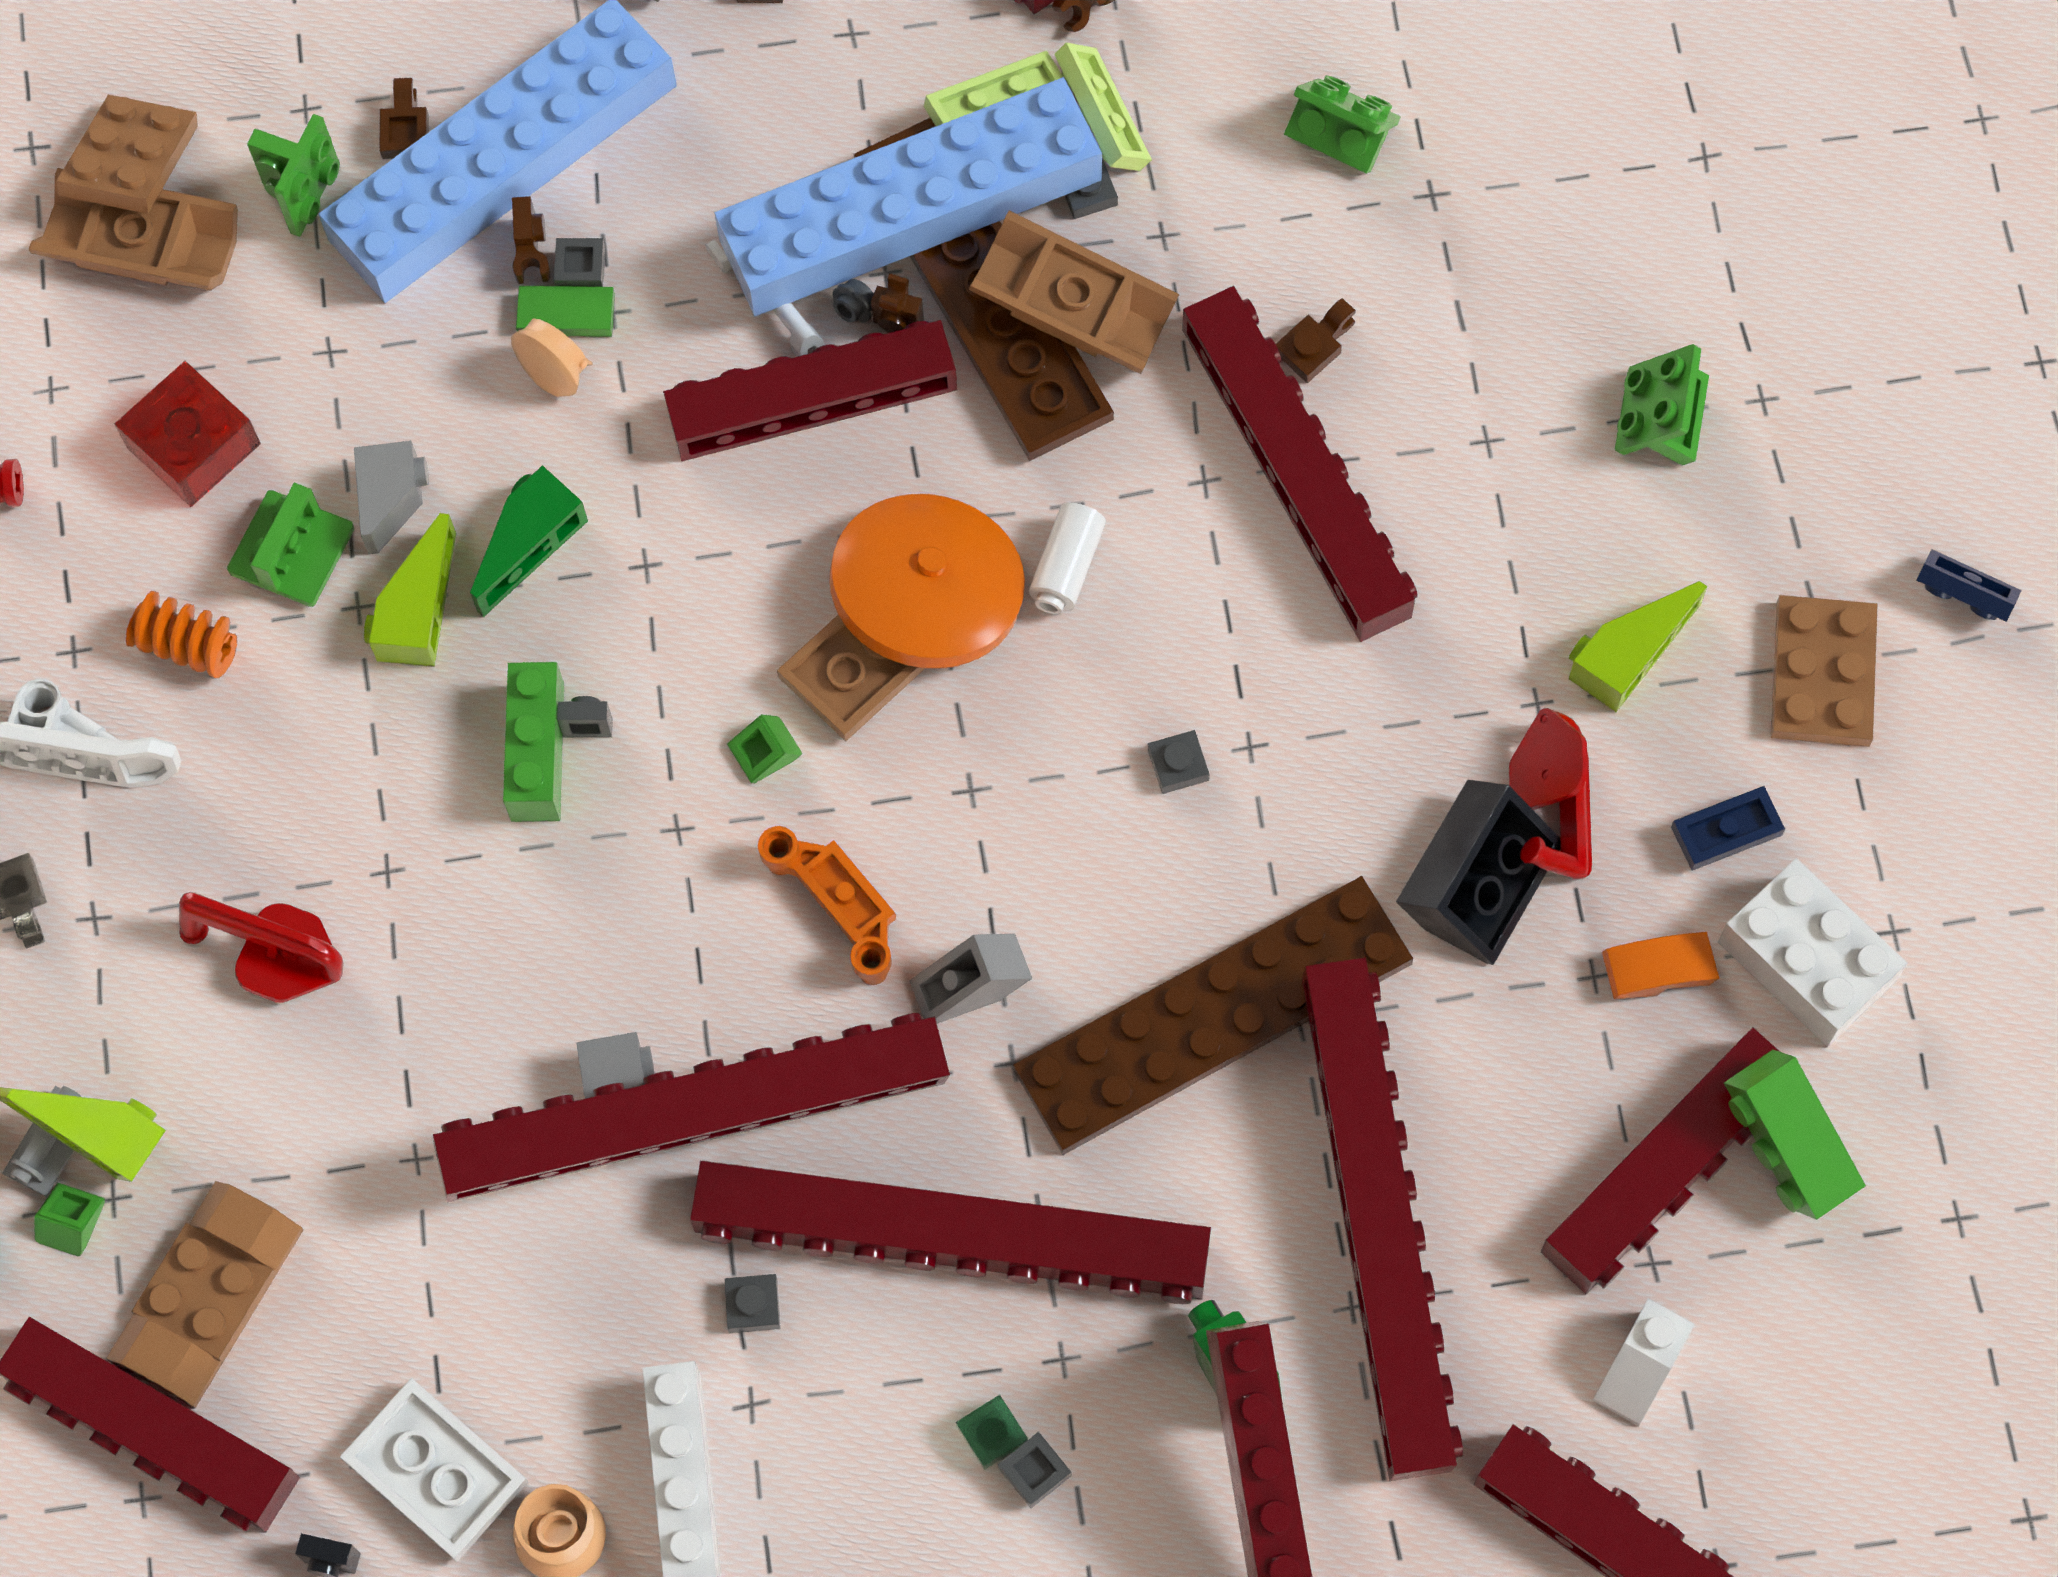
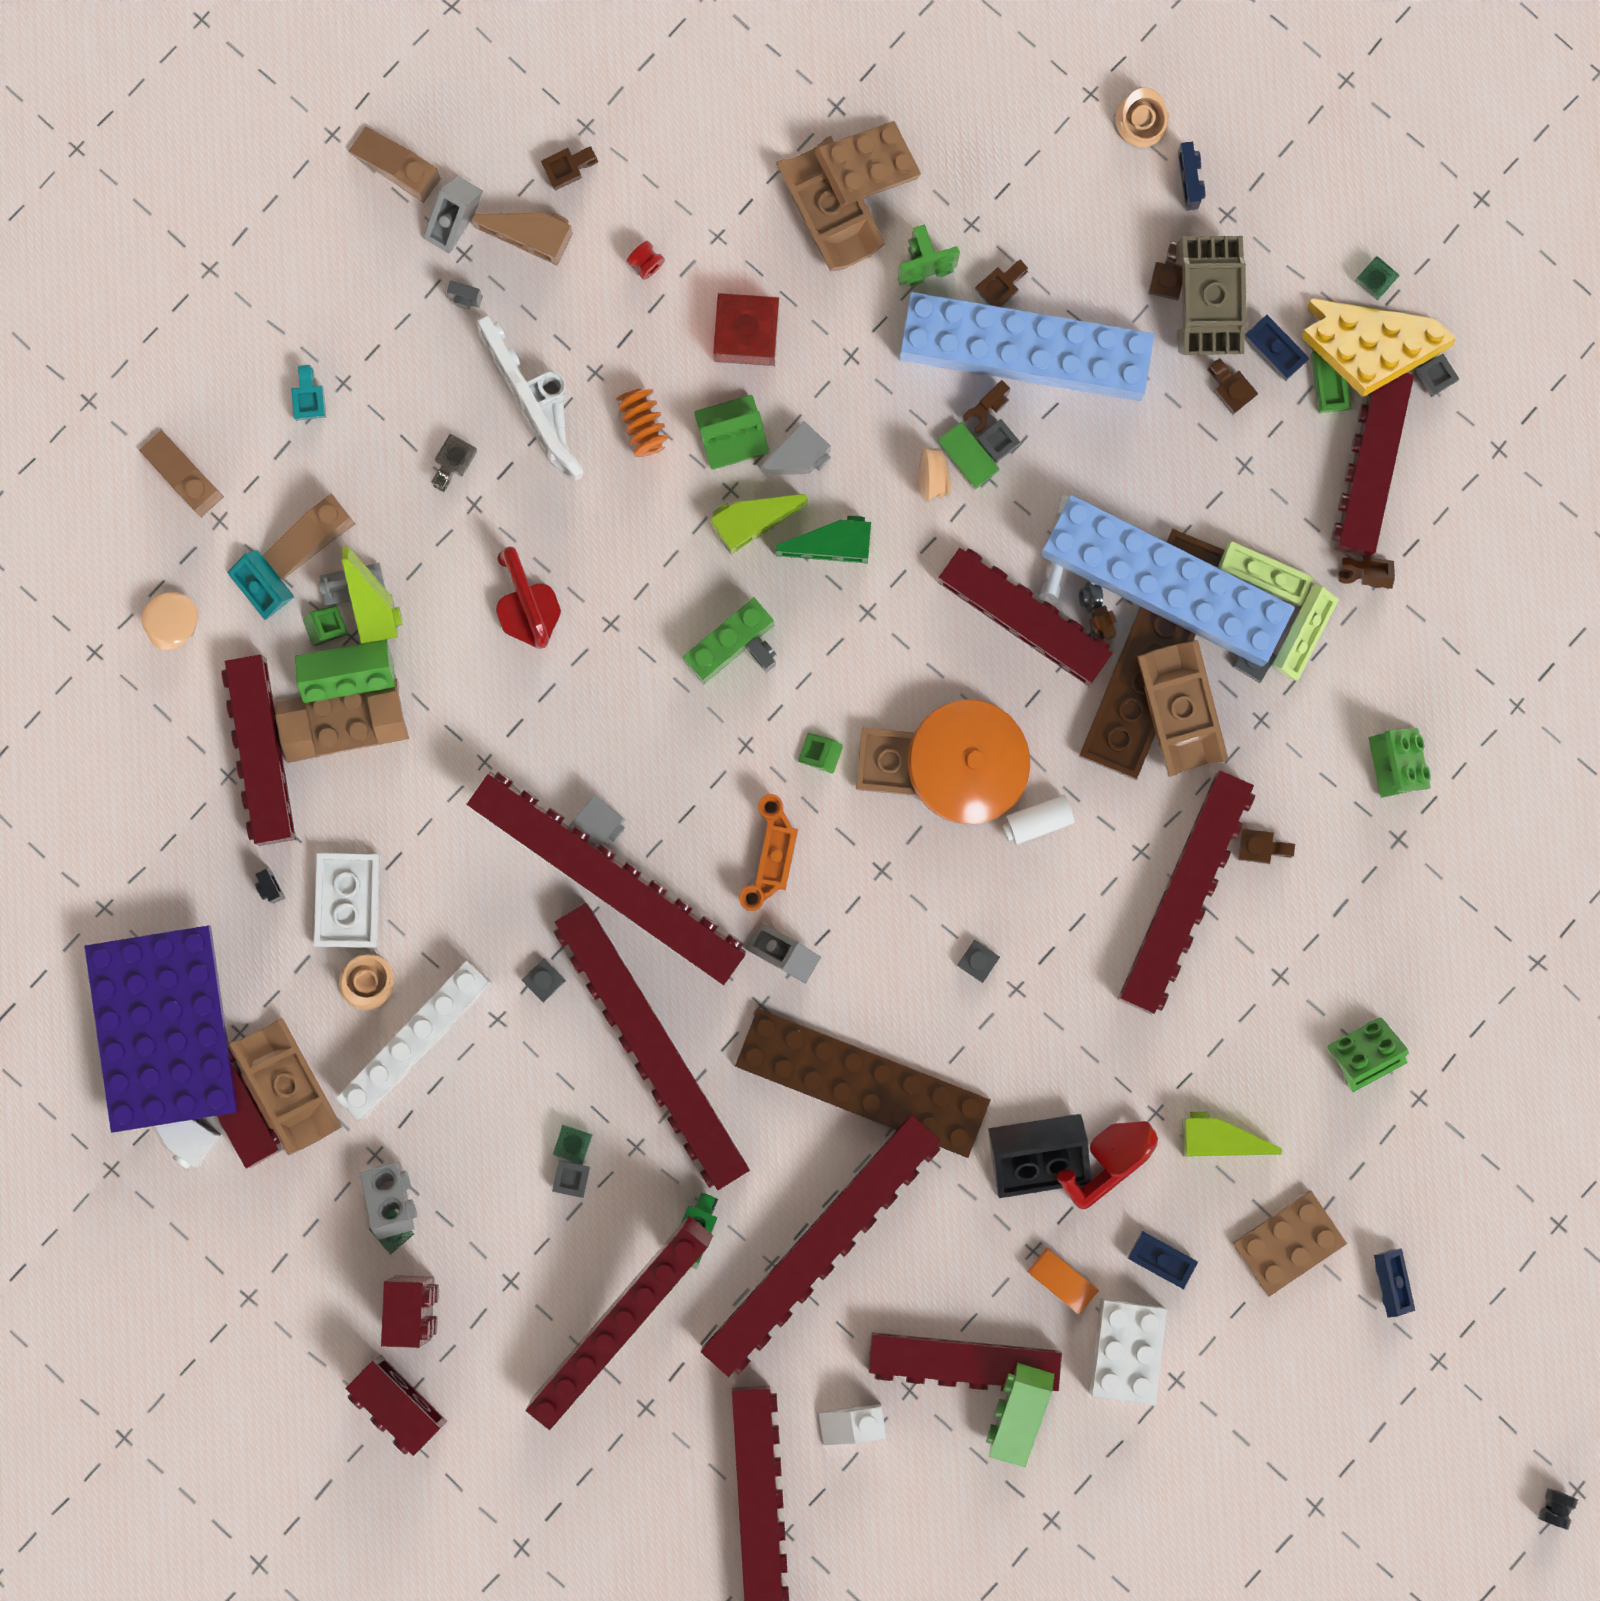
camera: 50 degrees right, 15 degrees up
(147, 1231) = (345, 671): none -> bright green brick

